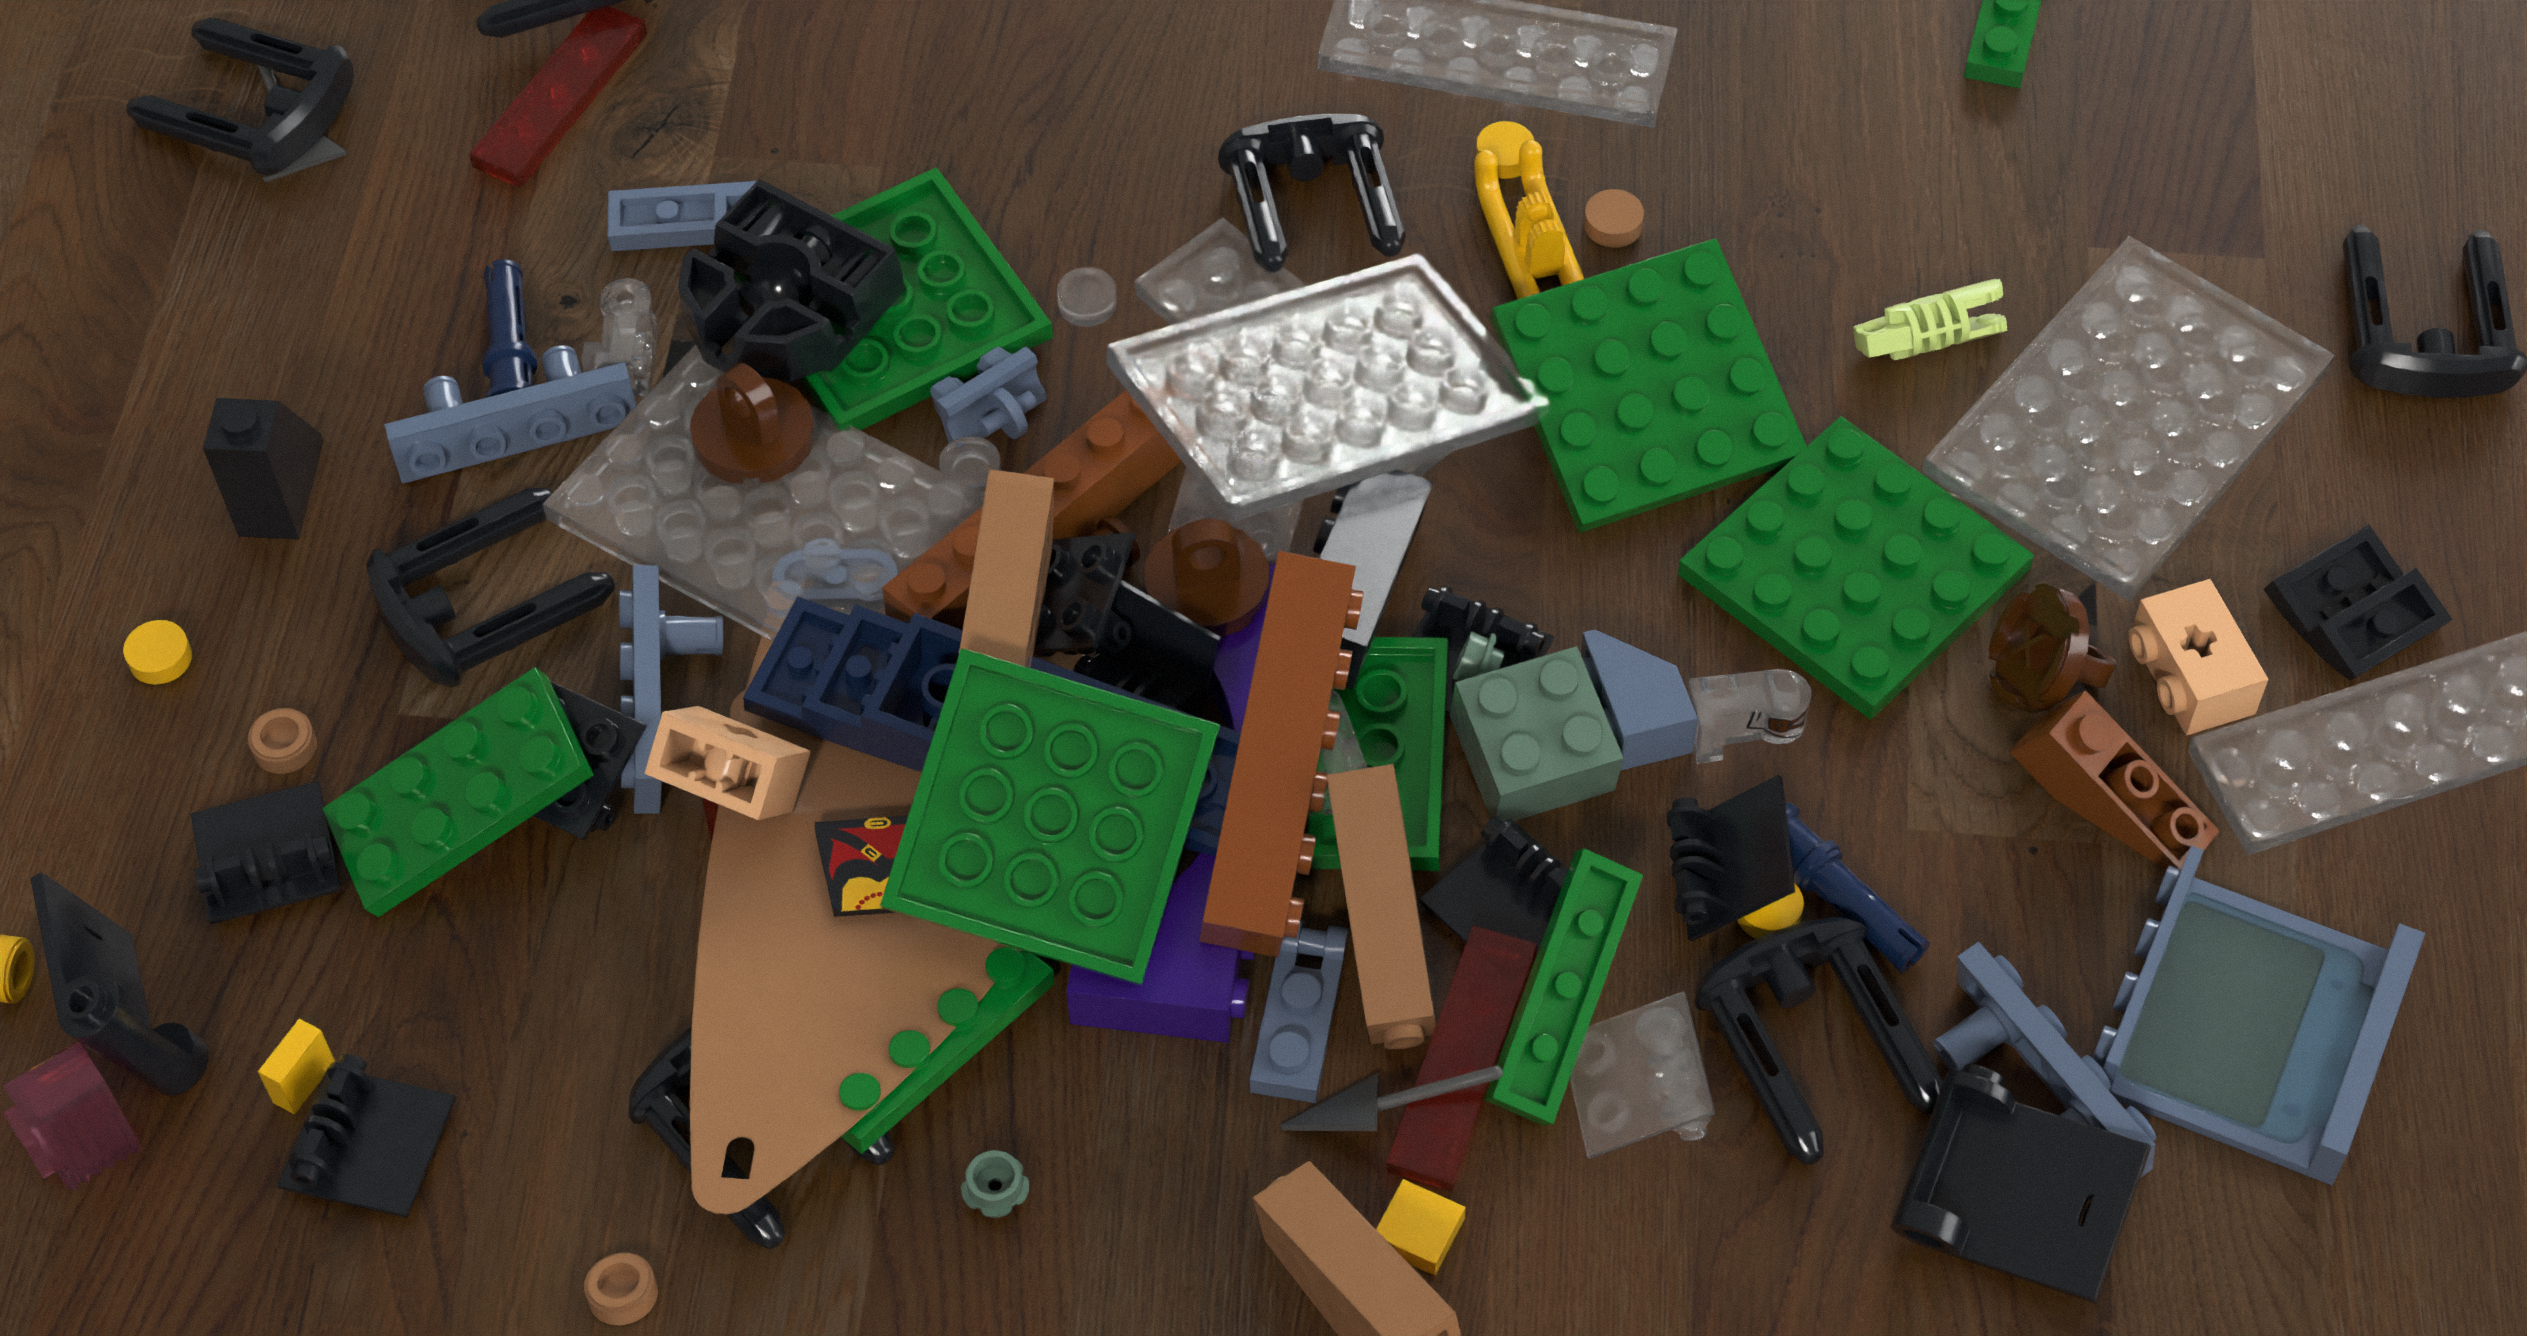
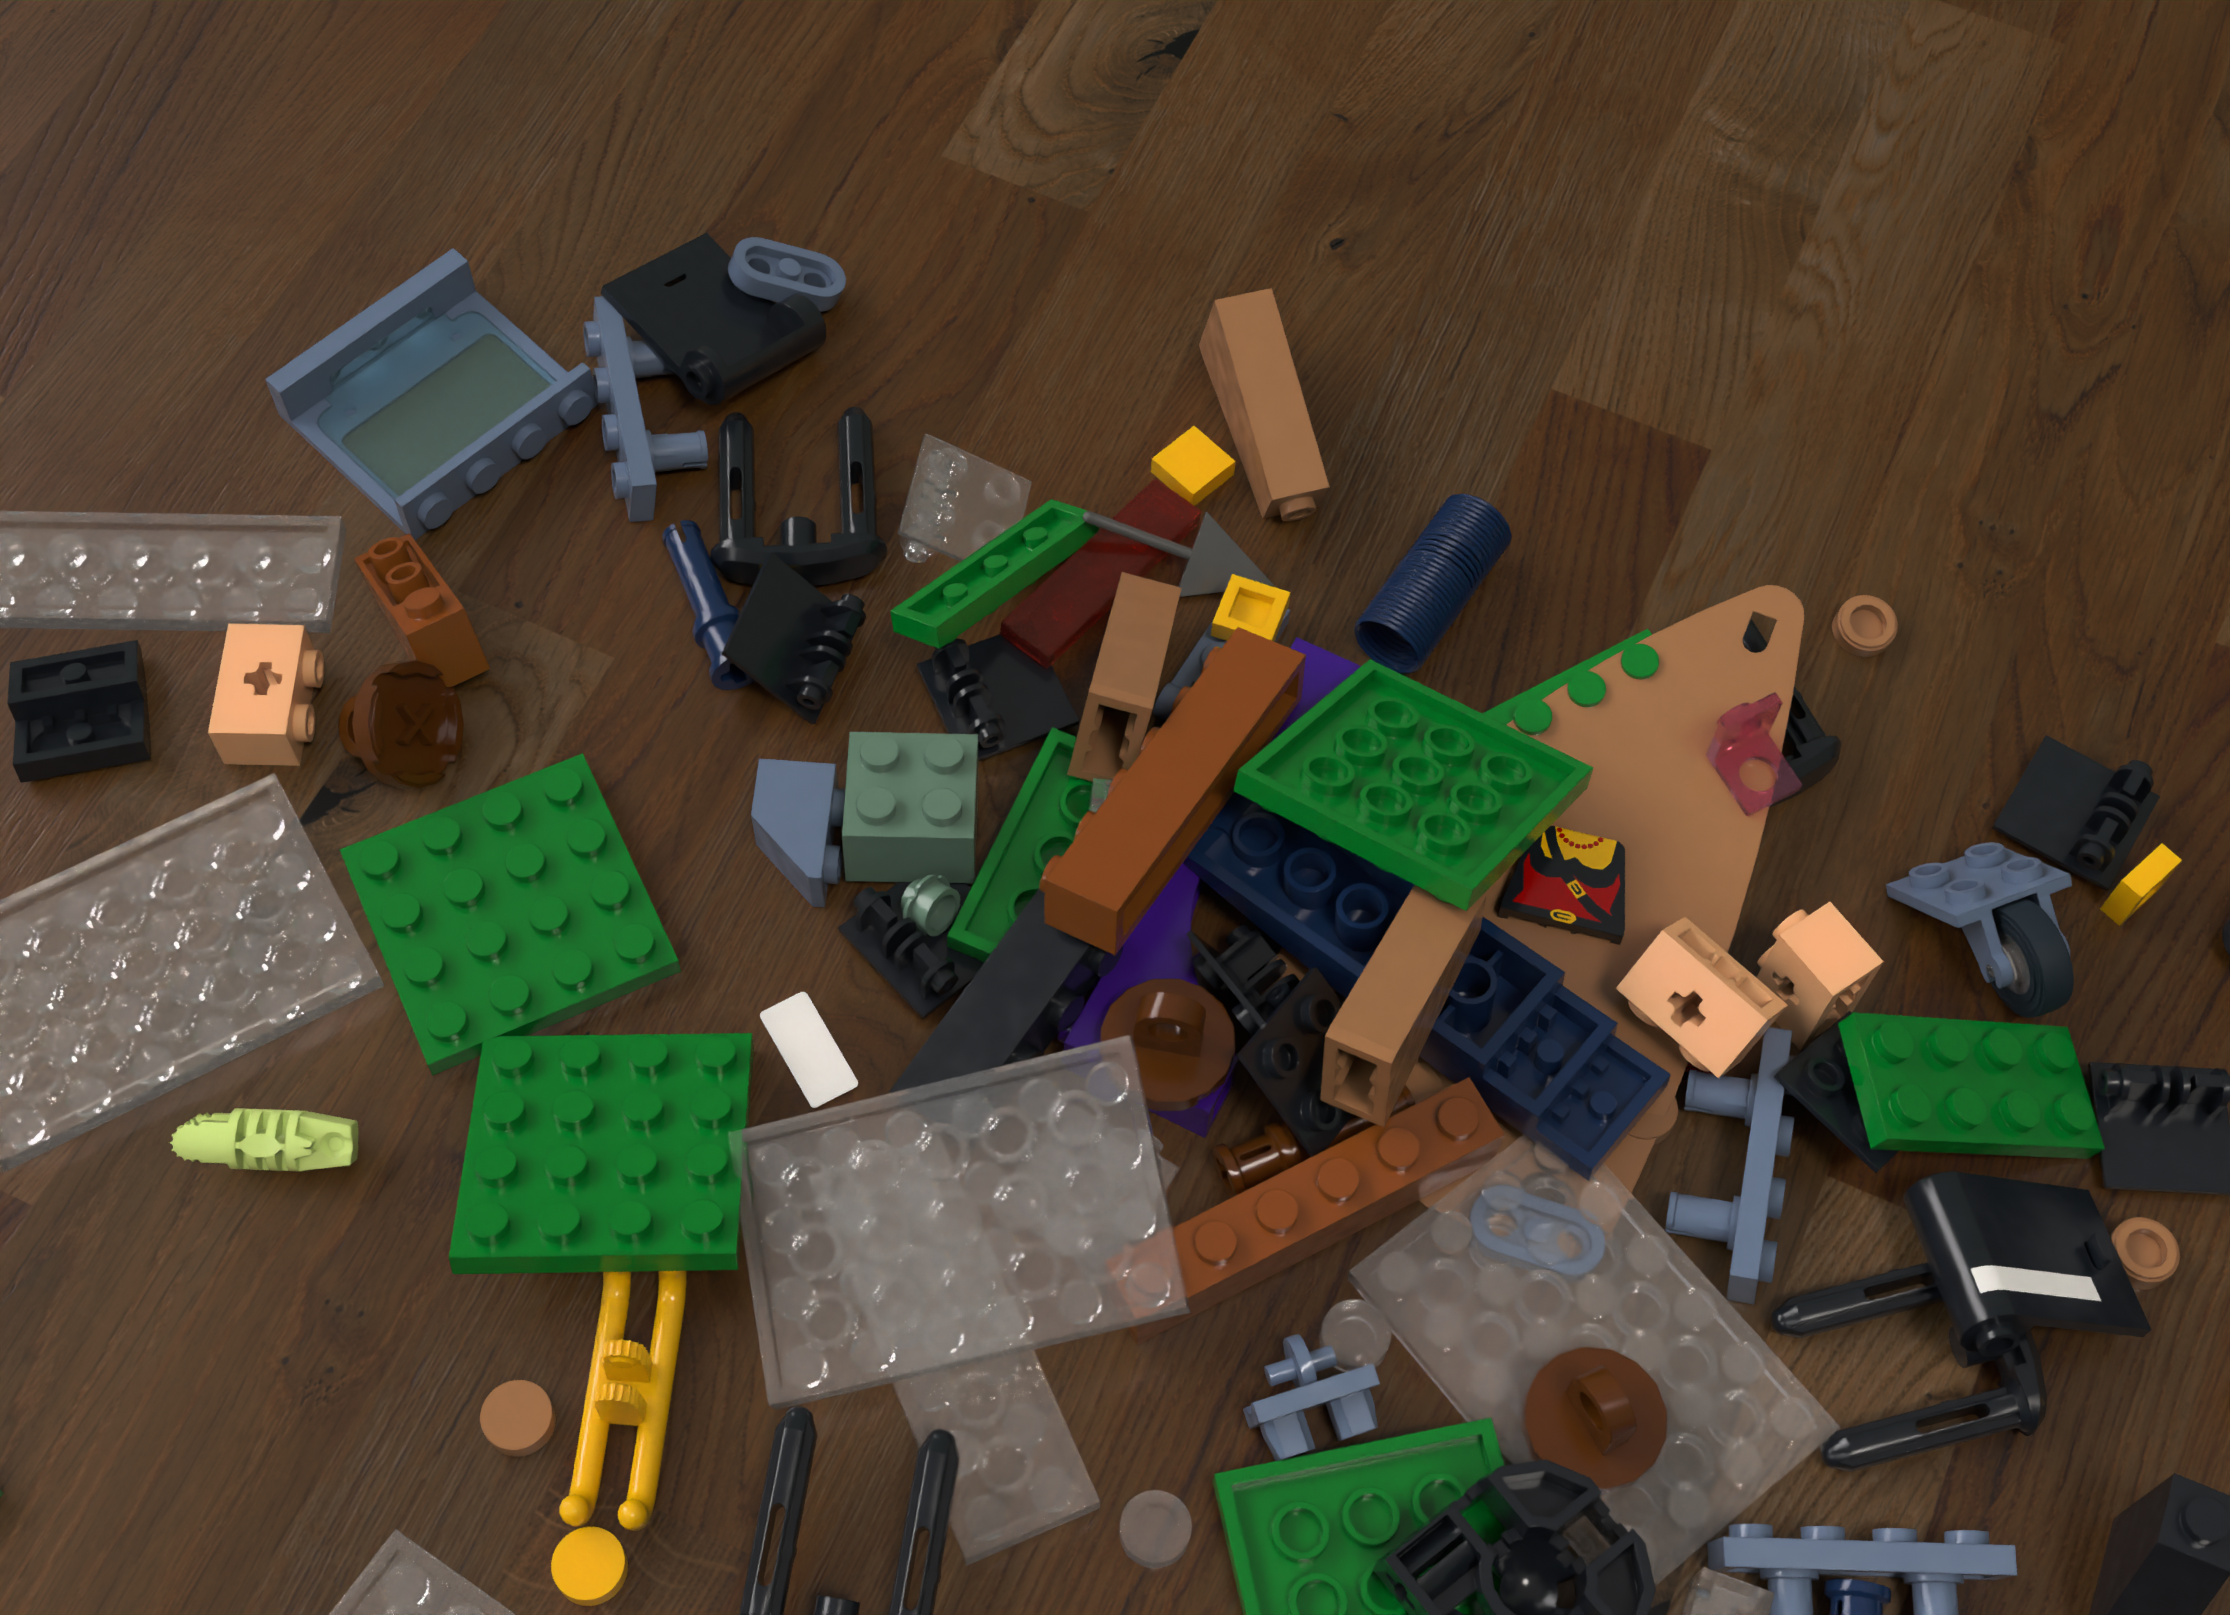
camera: 165 degrees left, 5 degrees up
(394, 664) = (2020, 1259): none -> black door
(455, 975) = (2006, 918): none -> sand blue plate
(621, 837) = (1817, 970): none -> light nougat brick
(729, 1007) = (1744, 737): none -> clear pink bracket
(993, 1167) = (1537, 588): sand green plate -> none
(1111, 1135) = (1433, 583): none -> dark blue piece
(1285, 1033) = (1250, 607): none -> yellow tile
(1531, 546) = (809, 1049): none -> white sticker
(1747, 708) = (698, 785): clear leg -> none
(1972, 1273) = (780, 270): none -> sand blue plate

